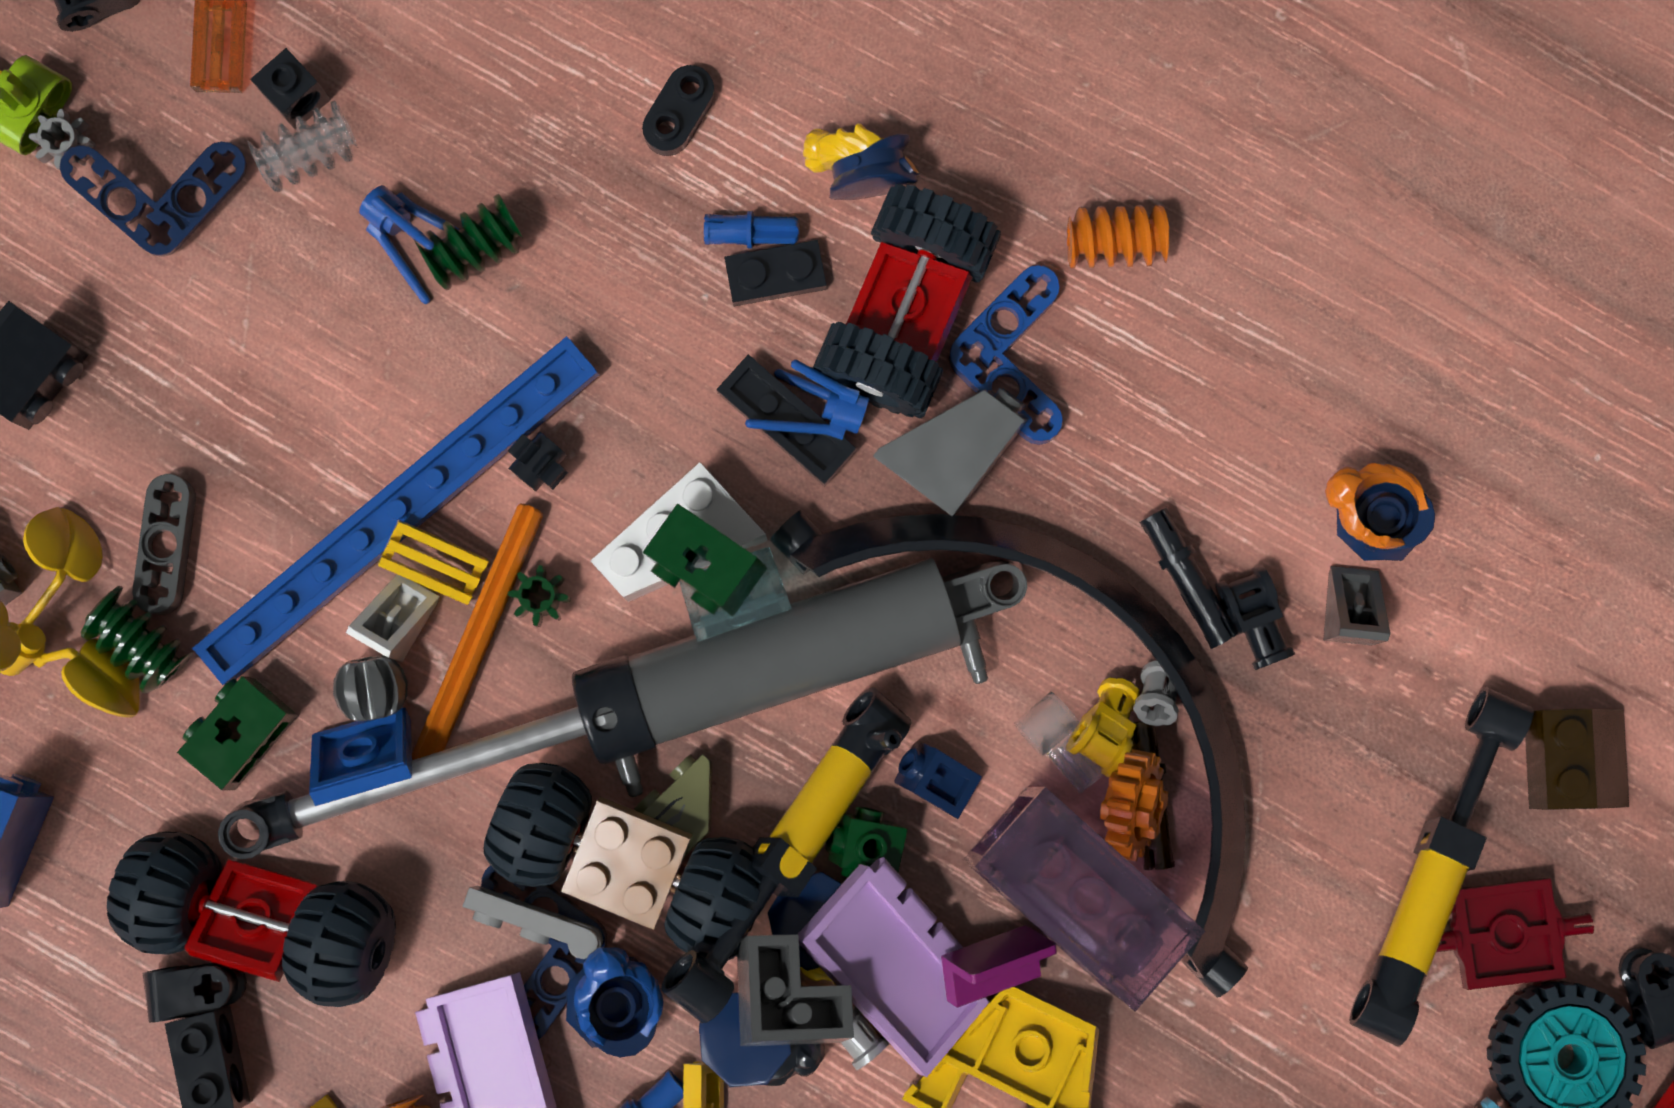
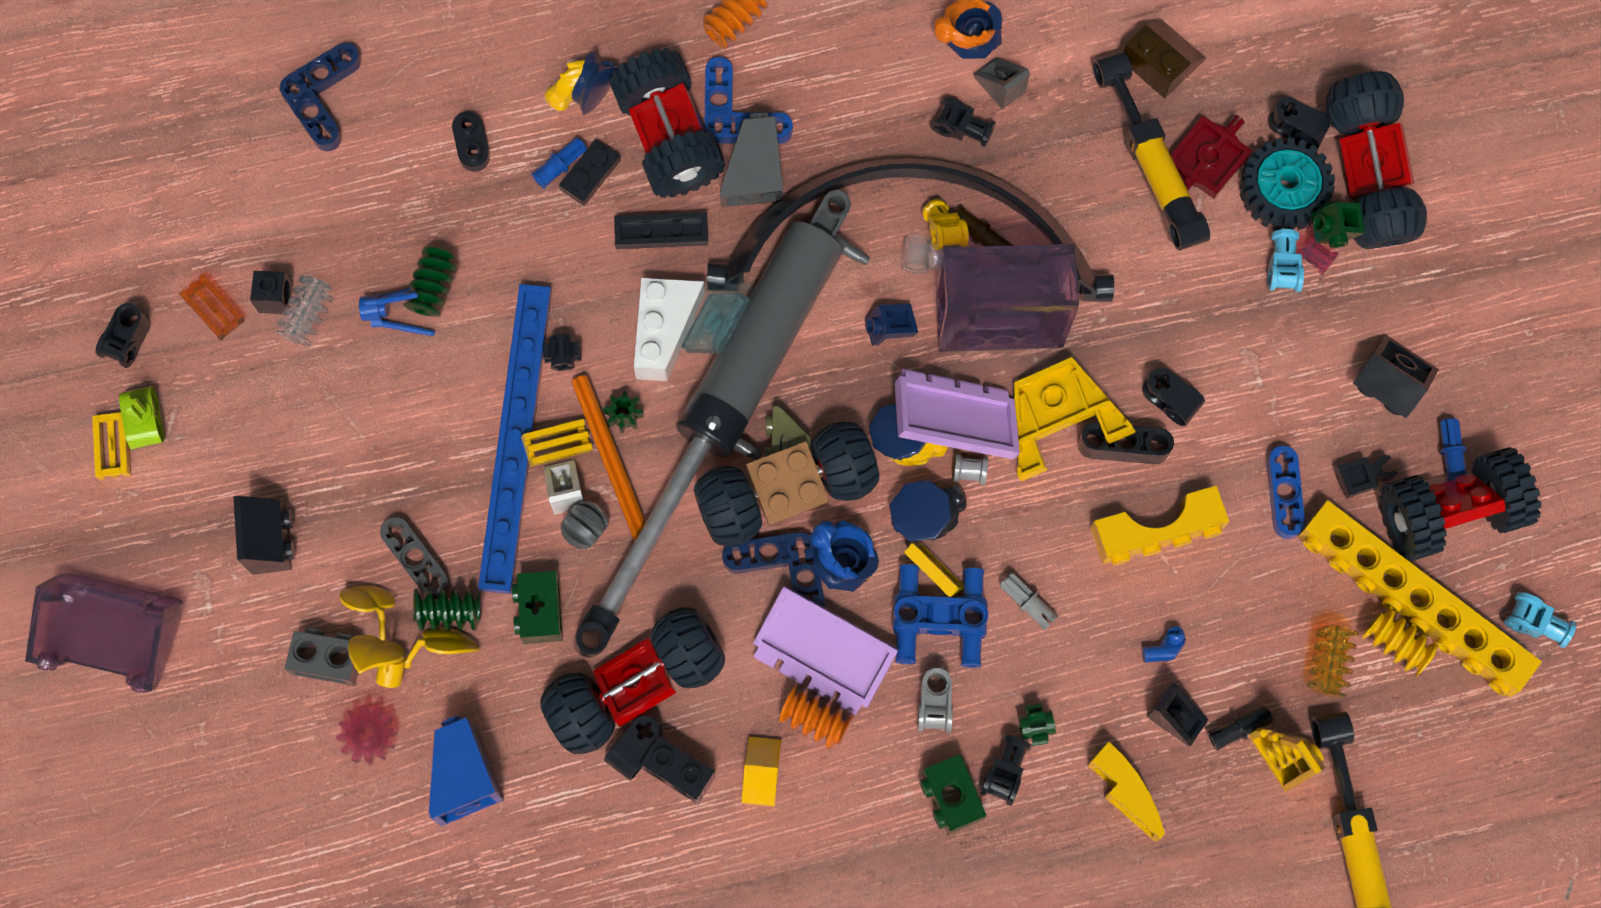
camera: 45 degrees left, 10 degrees down
(55, 129) = (179, 407): light grey gear -> none
(167, 207) = (262, 403): dark blue beam -> none
(360, 757) = (611, 557): blue tile -> none
(535, 922) = (770, 552): light grey plate -> none
(687, 538) = (675, 305): dark green brick -> none
(776, 1006) = (919, 470): dark grey brick -> none
(785, 858) = (857, 407): black piece -> none
(843, 405) = (684, 200): blue plant -> none
(864, 839) = (881, 377): dark green brick -> none
(994, 964) = (1000, 375): magenta panel -> none
(1134, 804) = (986, 232): orange gear -> none
(1156, 693) = (949, 191): light grey bush -> none
(1188, 577) = (915, 134): black pin -> none

